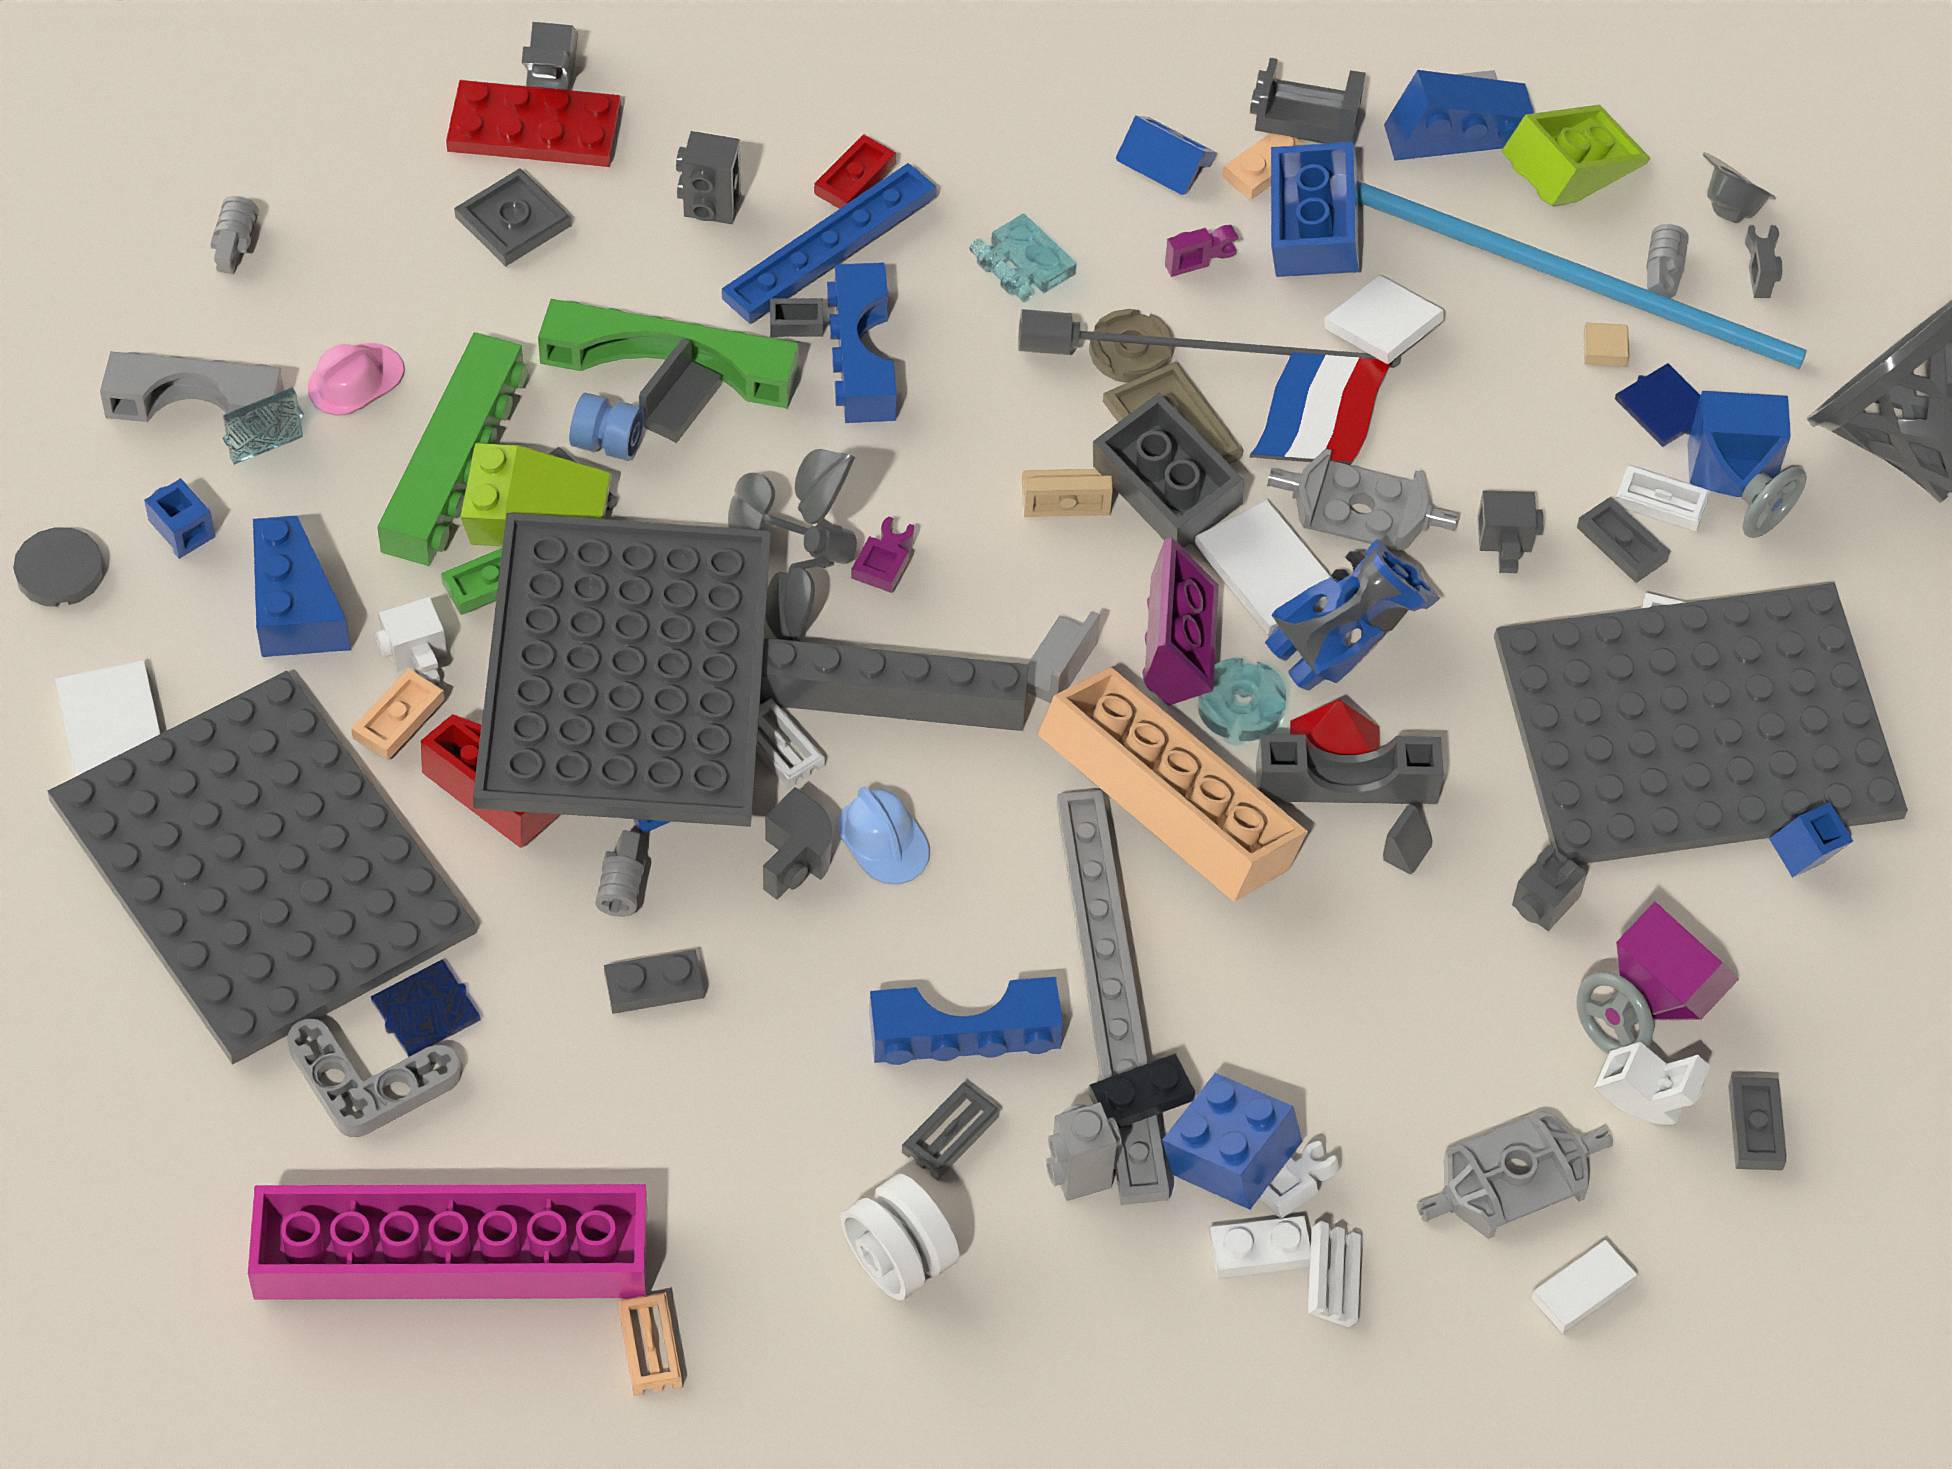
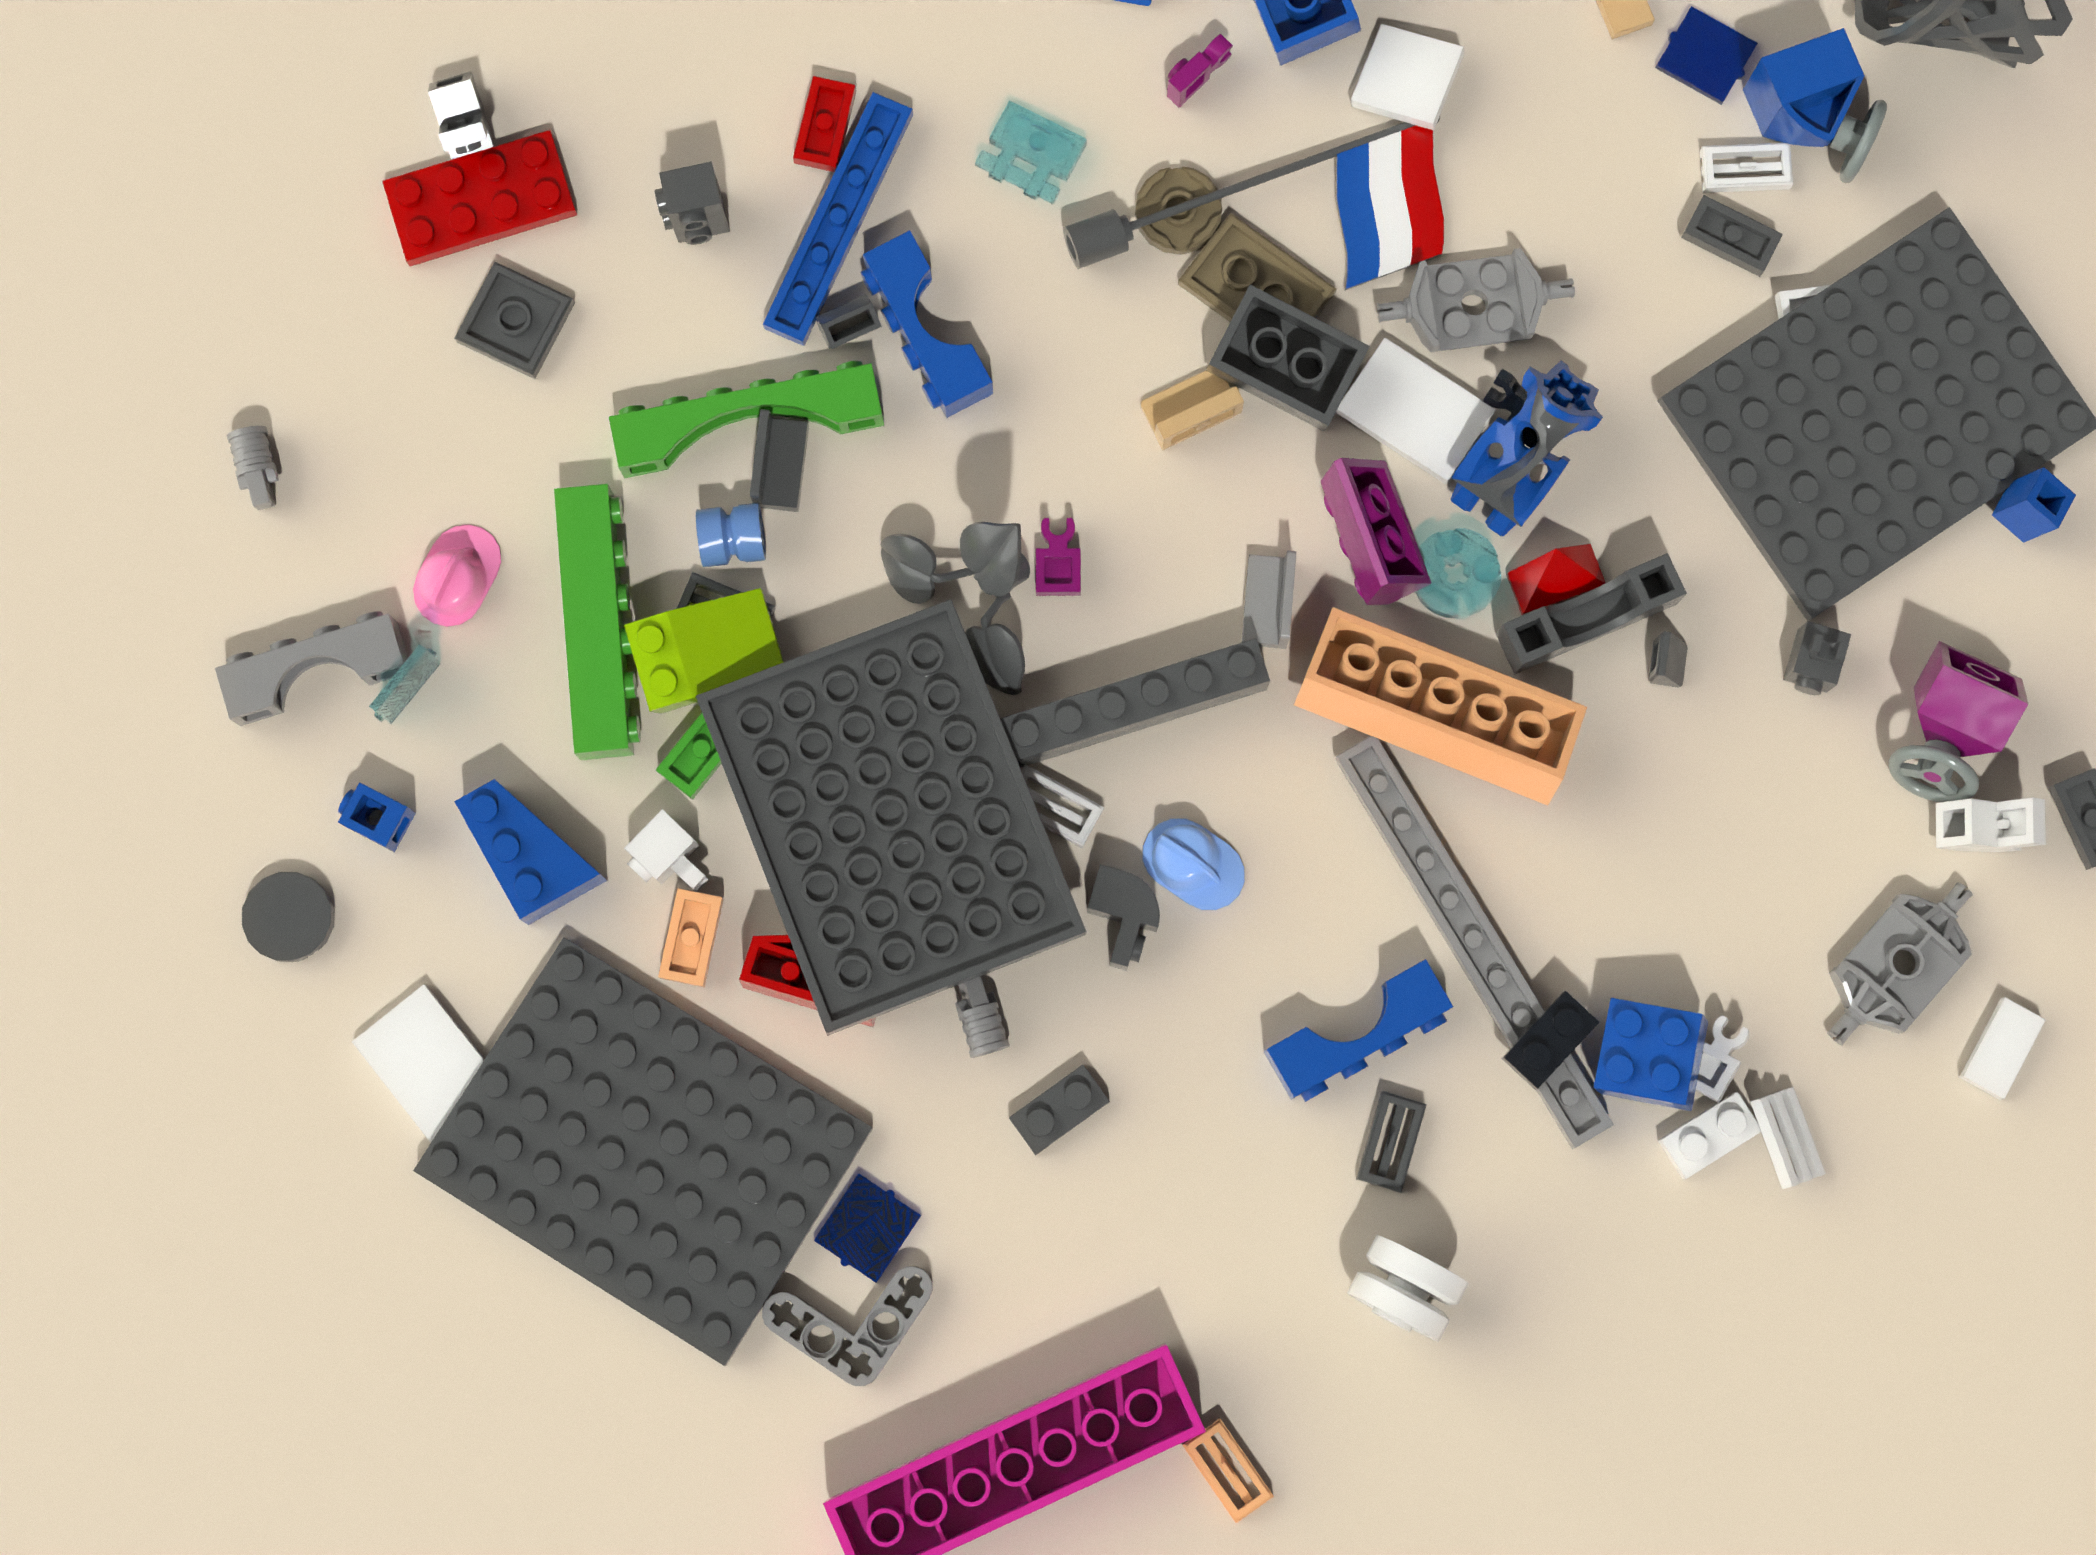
camera: 20 degrees left, 25 degrees up
(1083, 1150) = (1527, 1126): light grey brick -> none
(1508, 525) = (1621, 268): dark grey brick -> none

